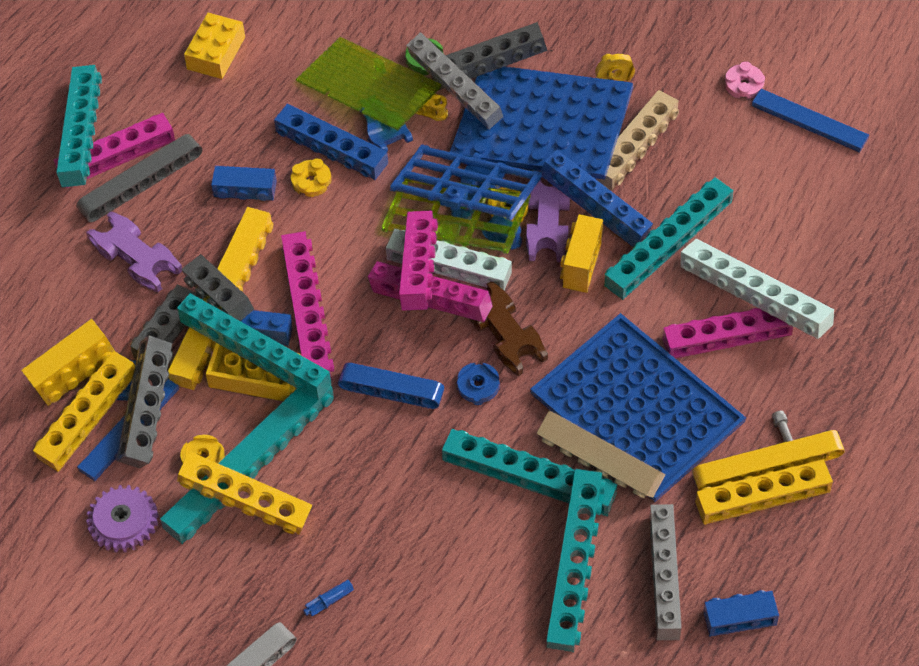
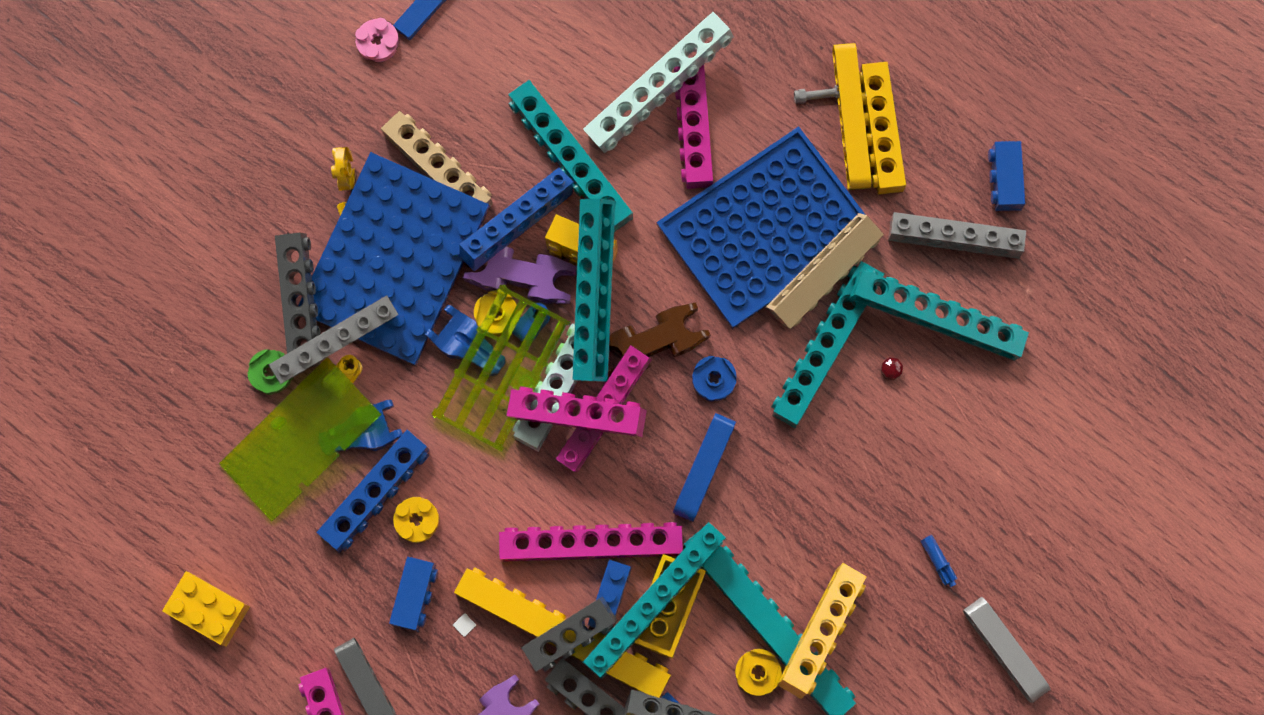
camera: 80 degrees left, 20 degrees up
(223, 228) = (464, 624): none -> white sticker
(457, 193) = (483, 358): blue door -> none
(516, 533) = (891, 368): none -> dark red tile
(534, 253) = (593, 290): none -> teal brick

